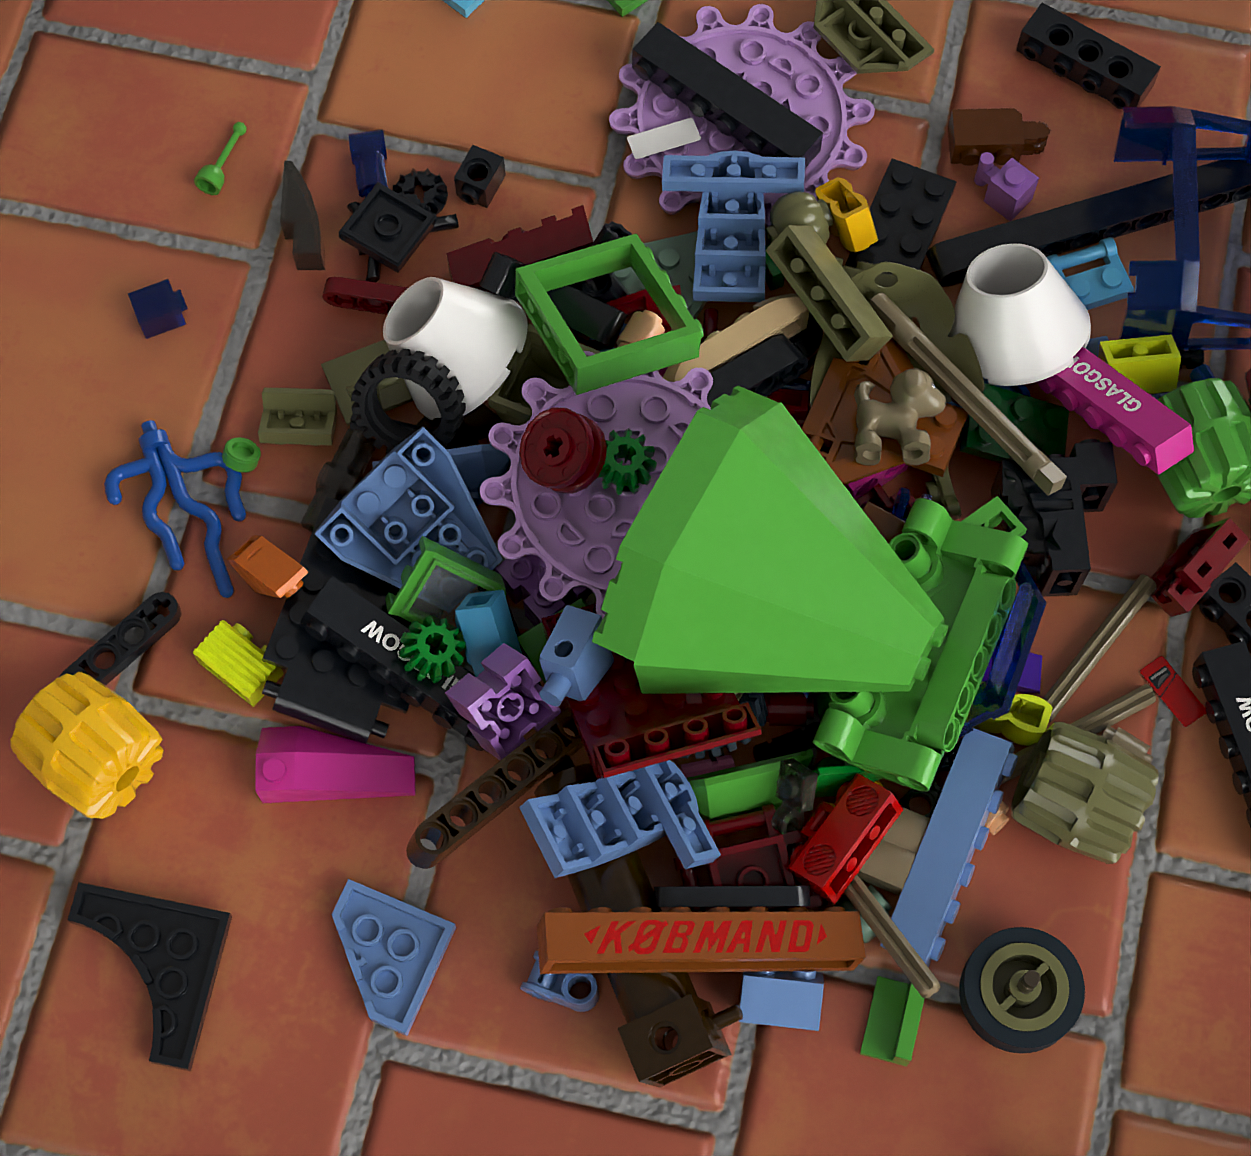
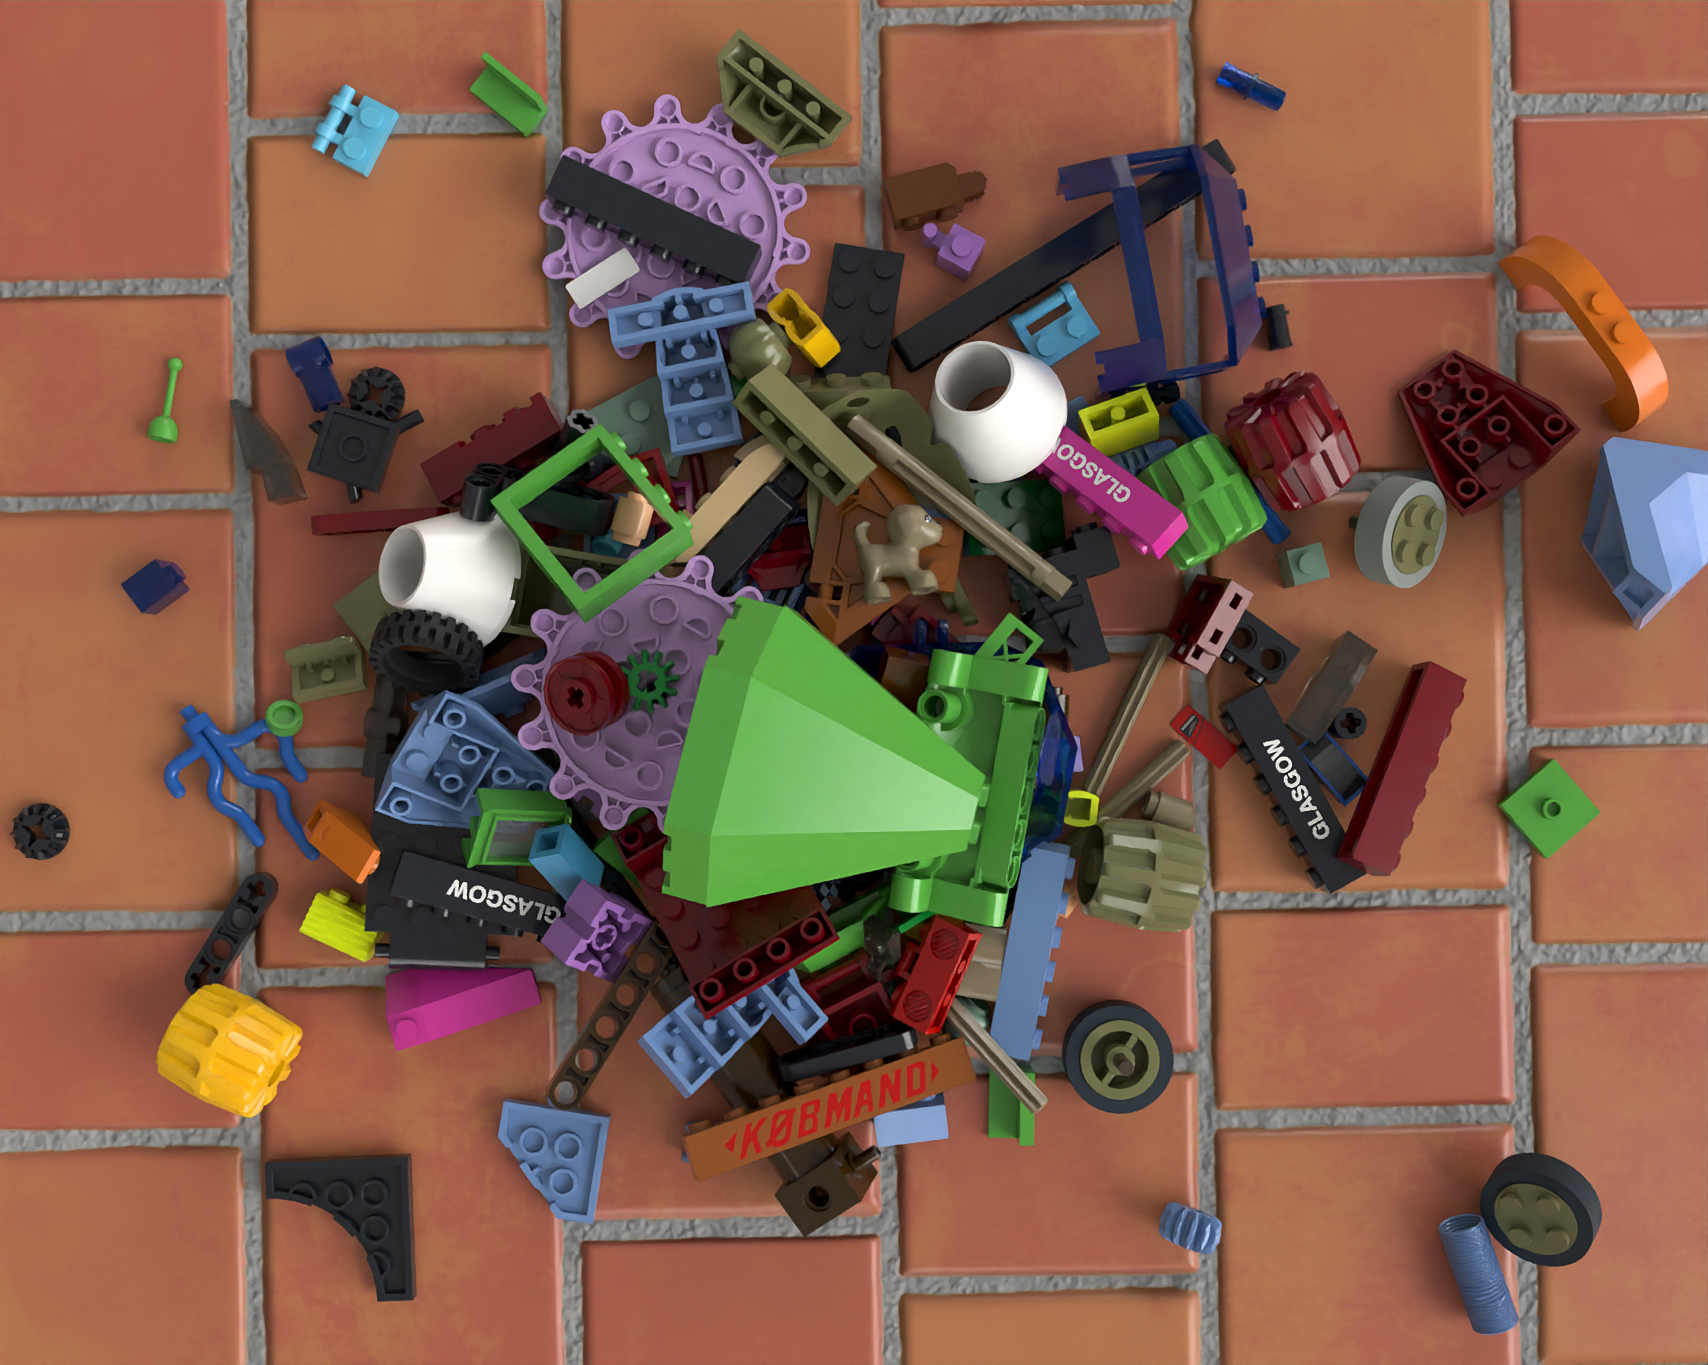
camera: 15 degrees left, 20 degrees up
(446, 649) = (526, 884): green gear -> none
(484, 165) = (422, 351): black brick -> none
(571, 659) = (643, 889): medium blue torso -> none
(1081, 43) = (999, 62): black brick -> none

